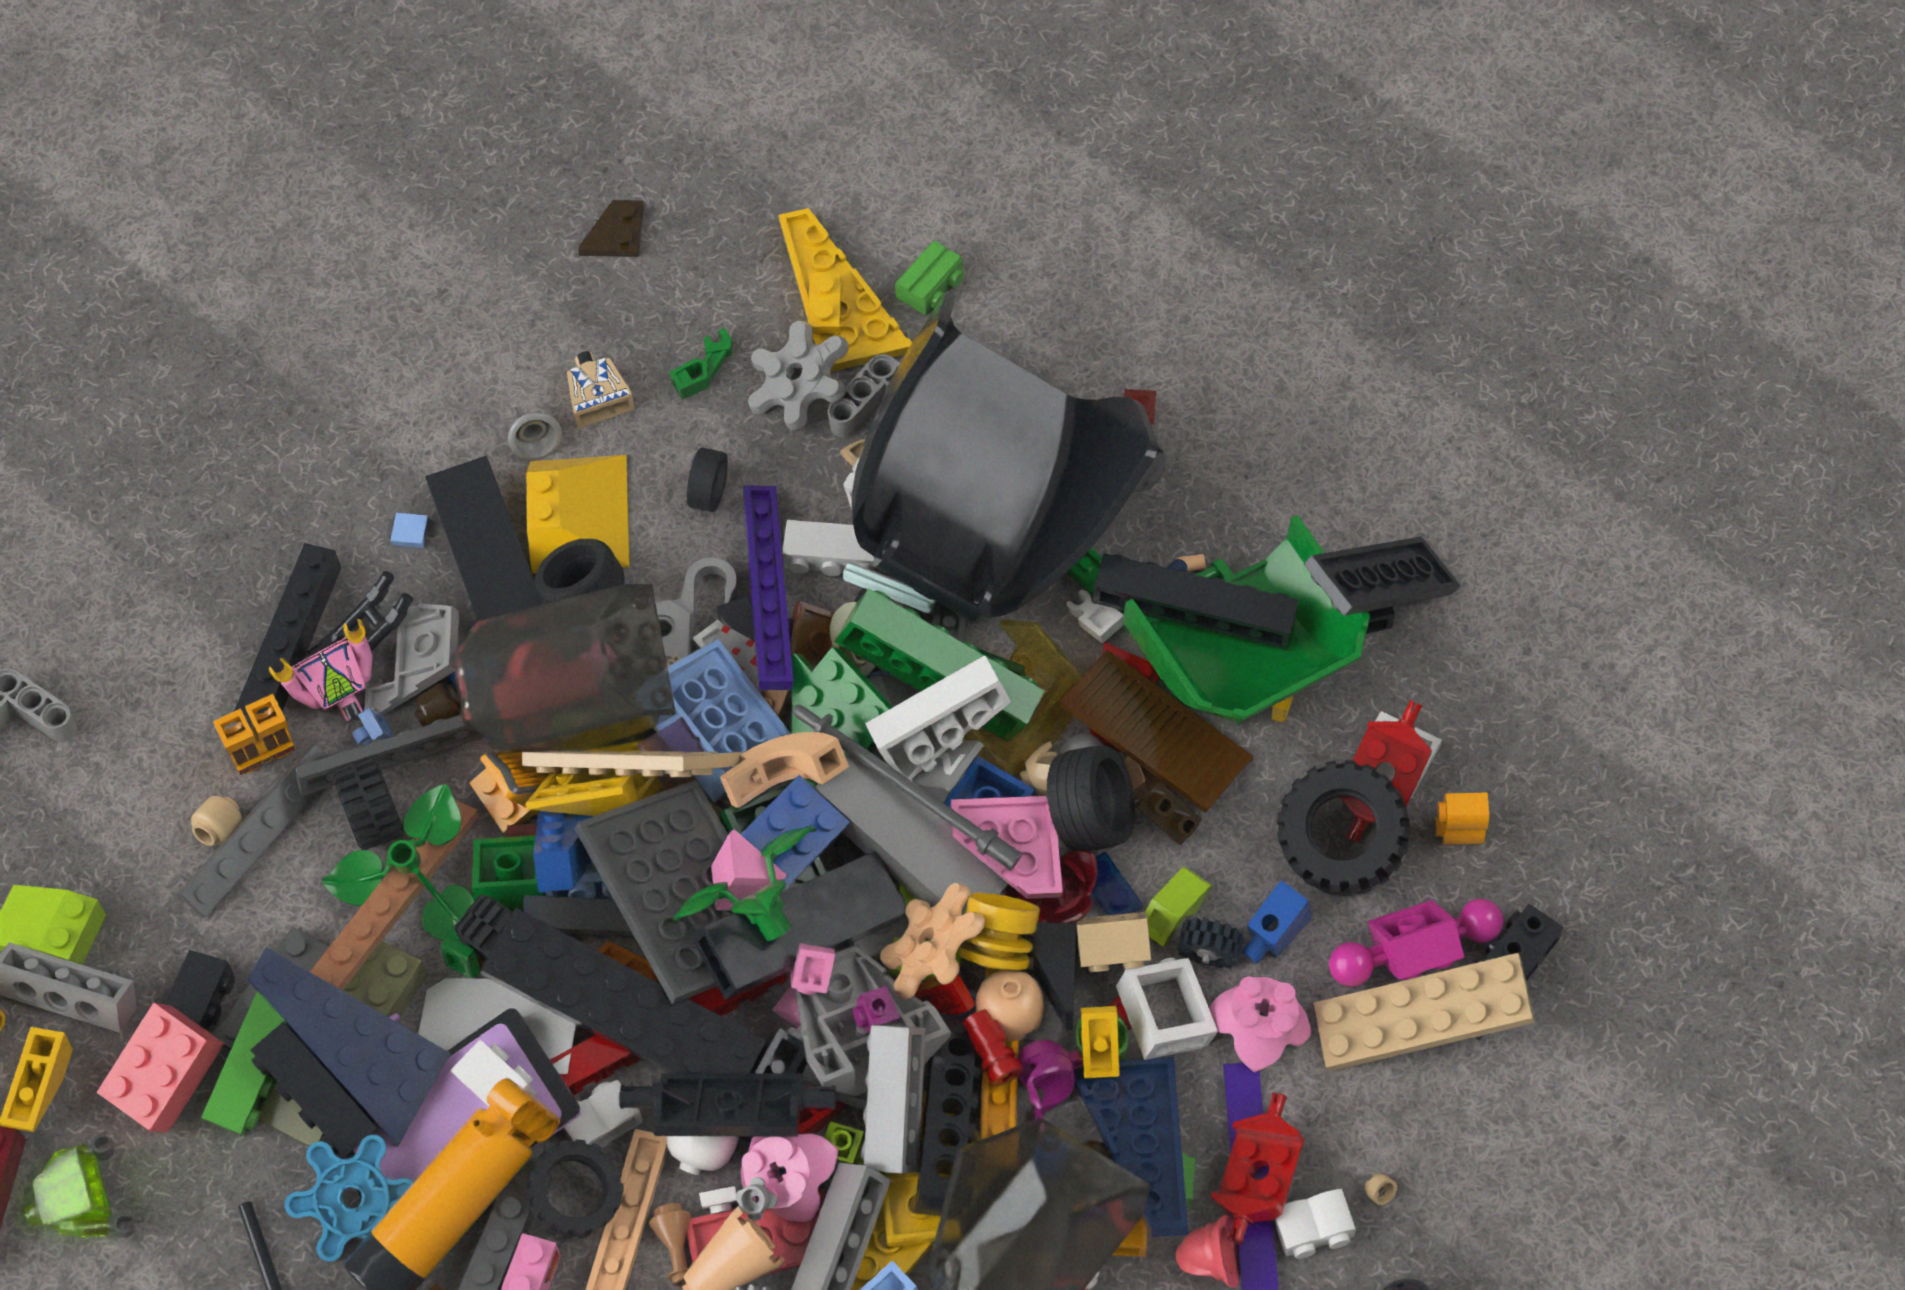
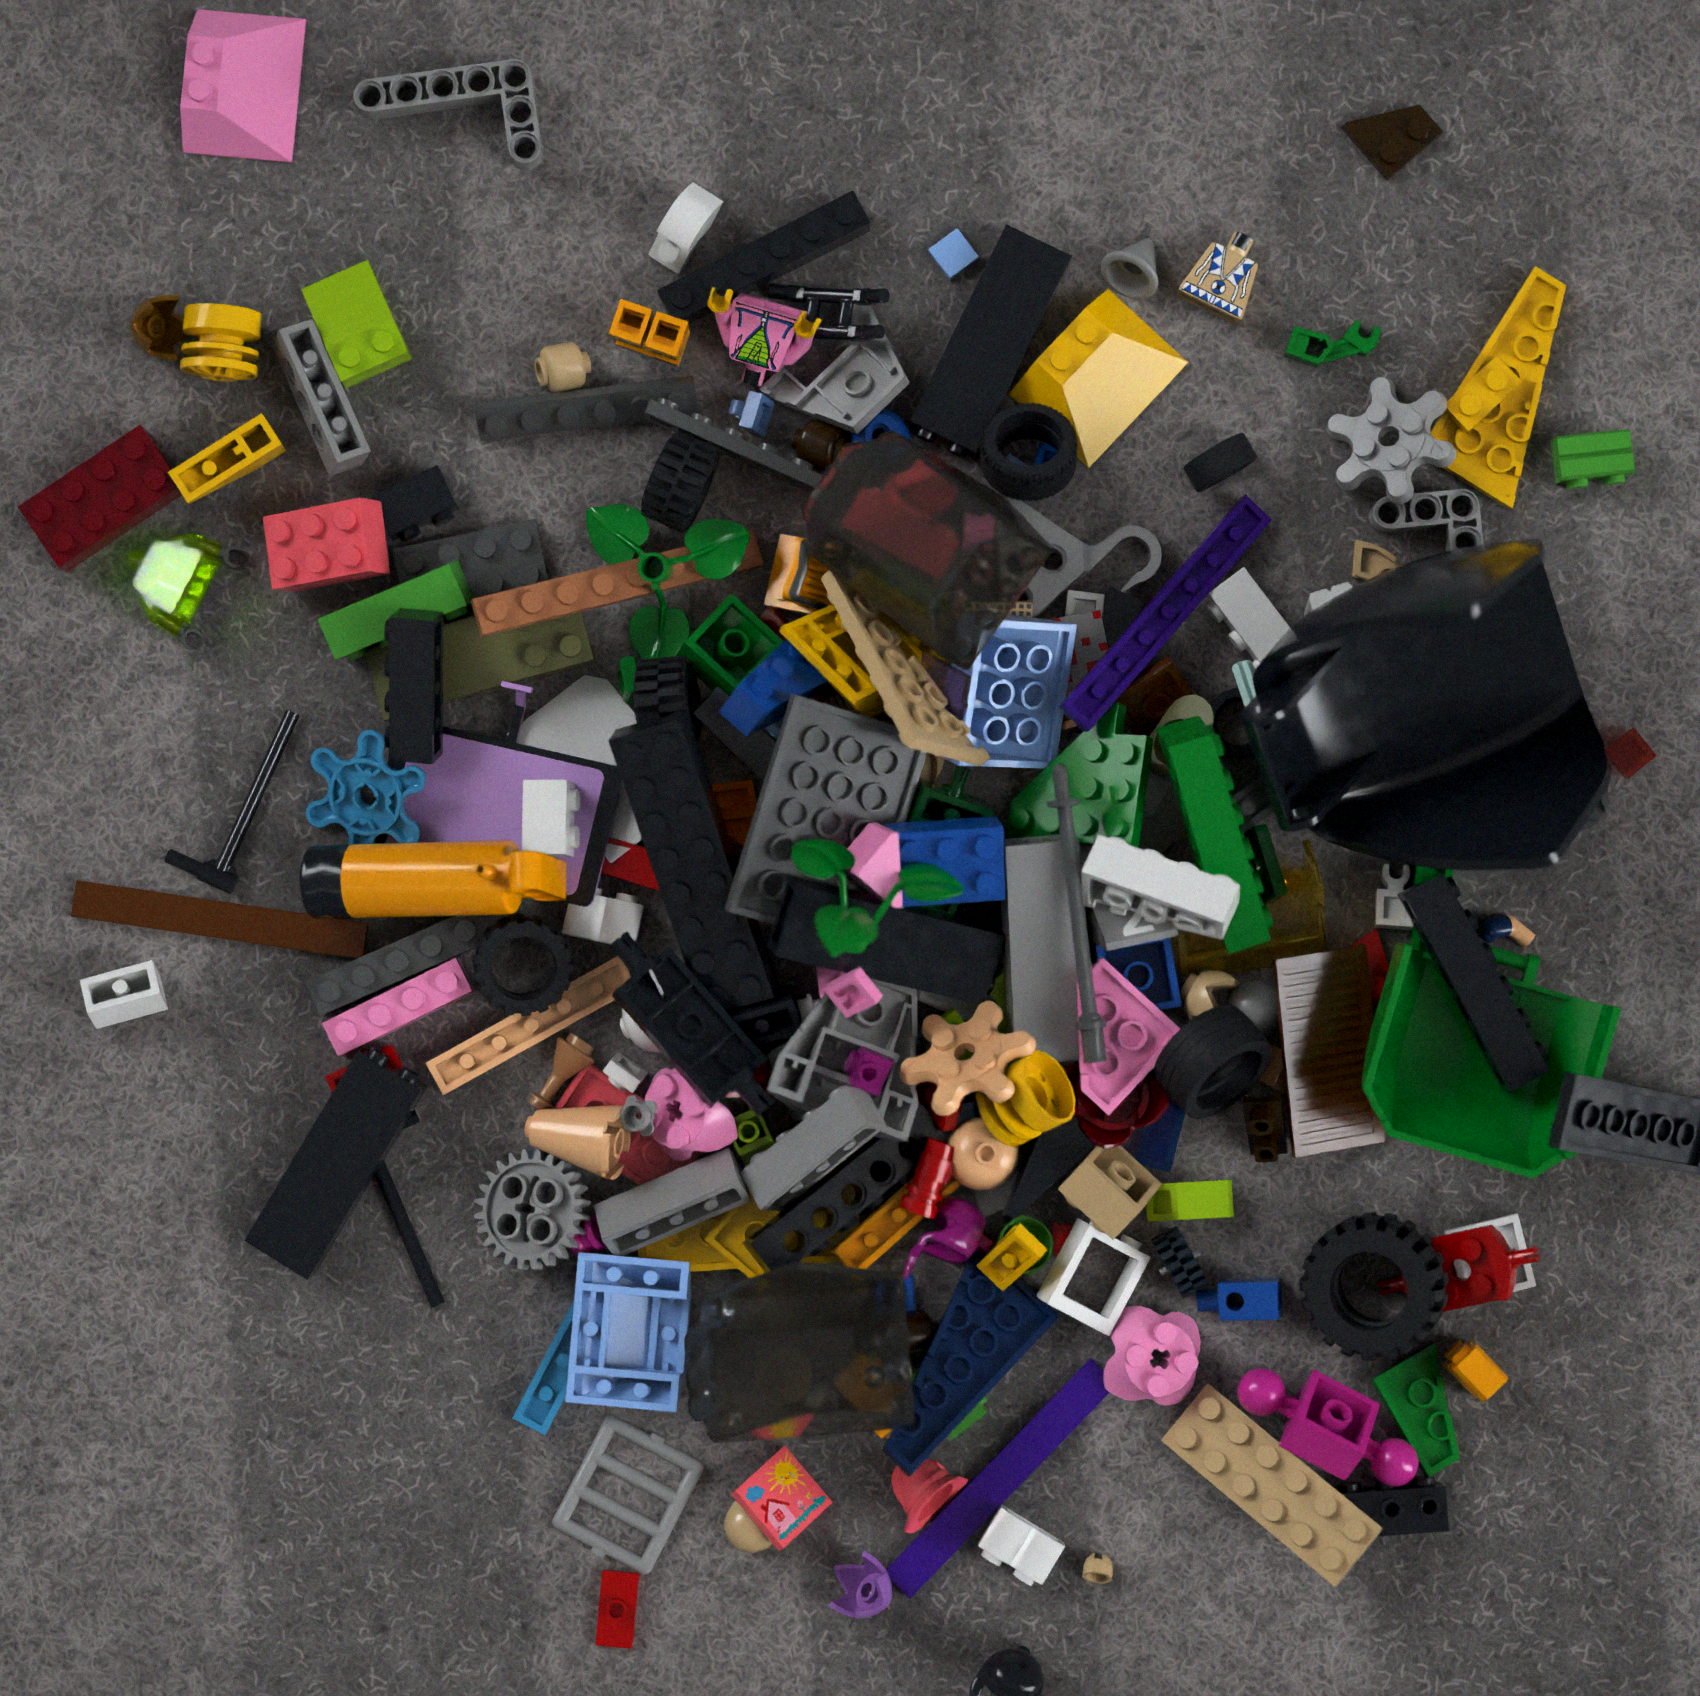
camera: 45 degrees right, 25 degrees up
(214, 669) = (683, 227): none -> white brick
(364, 1050) = (477, 697): dark blue wing -> none
(805, 754) = (1010, 796): light nougat arch -> none
(1259, 1143) = (991, 1470): red plate -> none
(1455, 882) = (1418, 1408): none -> green wing

